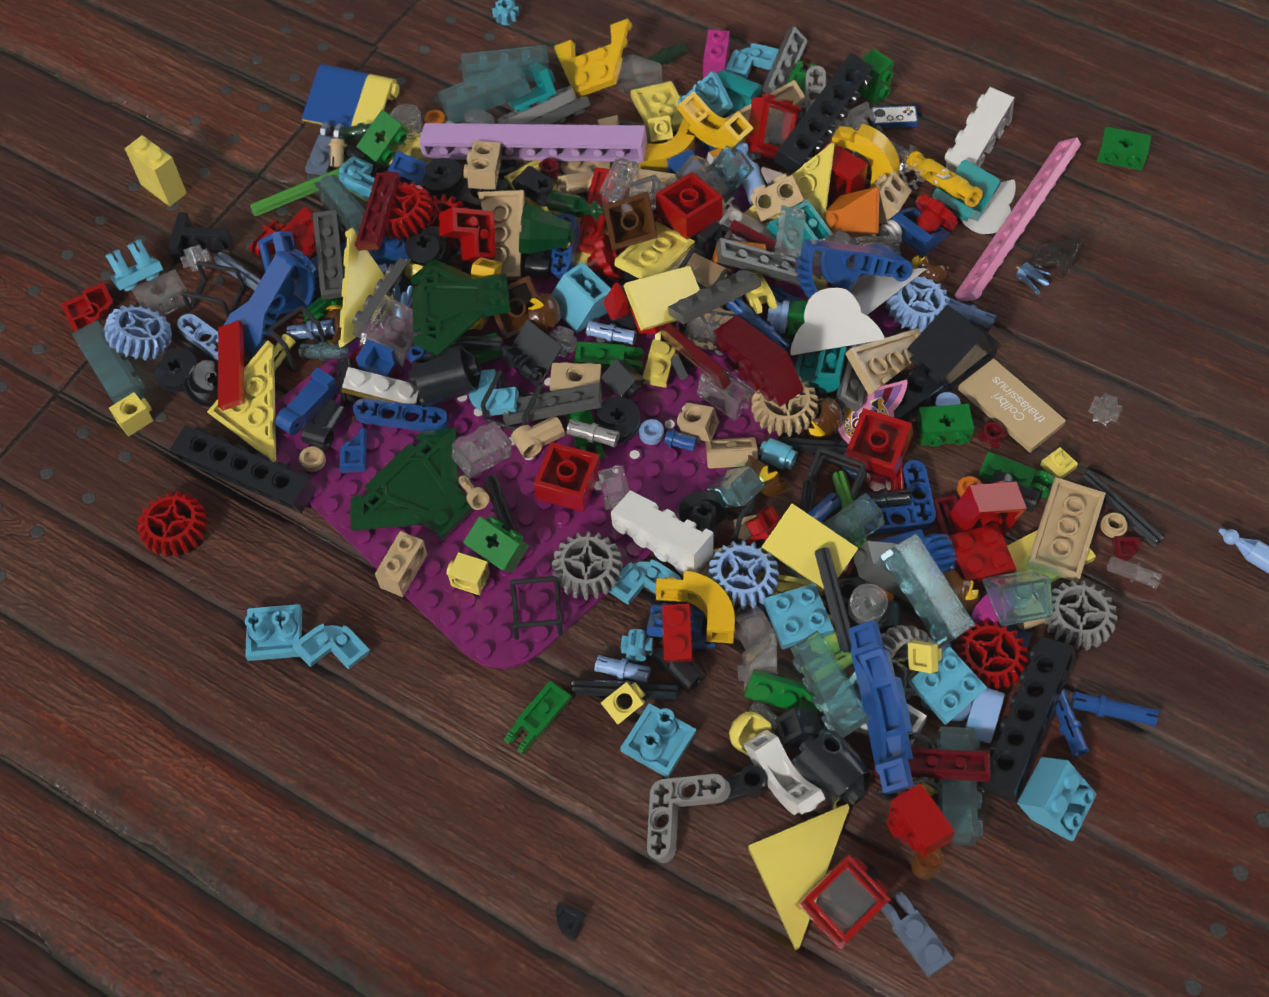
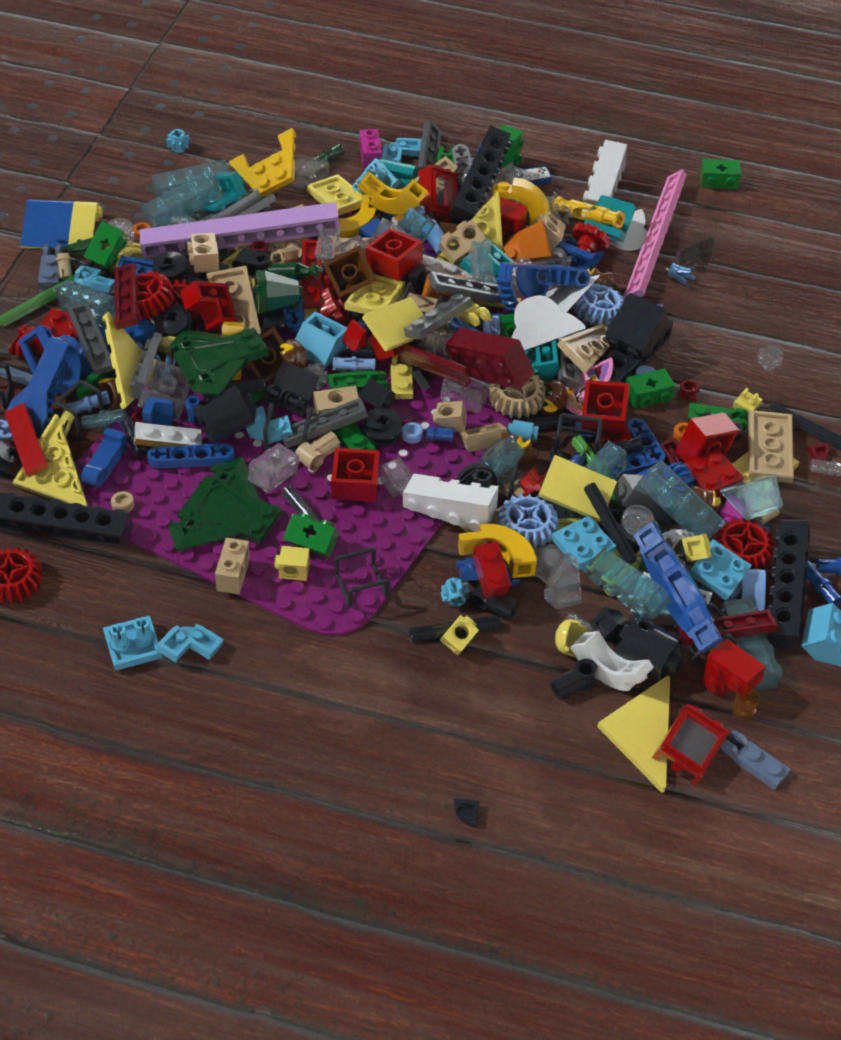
camera: 20 degrees left, 10 degrees down
(321, 430) = (125, 475): black piece -> none
(354, 453) = (158, 492): blue tile -> none
(476, 496) = (282, 503): tan piece -> none
(538, 715) = (389, 661): green hinge -> none
(593, 433) = (366, 438): light grey pin -> none
(607, 568) = (394, 538): light grey gear -> none
(622, 669) = (446, 613): light blue pin -> none
(637, 576) = (435, 543): medium azure plate -> none
(658, 129) = (346, 206): light yellow brick -> none
(658, 740) = (497, 658): medium azure plate -> none
(676, 799) = (527, 699): light grey beam -> none
(751, 235) = (447, 269): dark red tile -> none
(778, 691) = (583, 601): green hinge -> none
(1012, 405) = (693, 364): tan tile -> none
(1092, 607) = (805, 502): light grey gear -> none
(1113, 519) = (805, 437): tan plate -> none

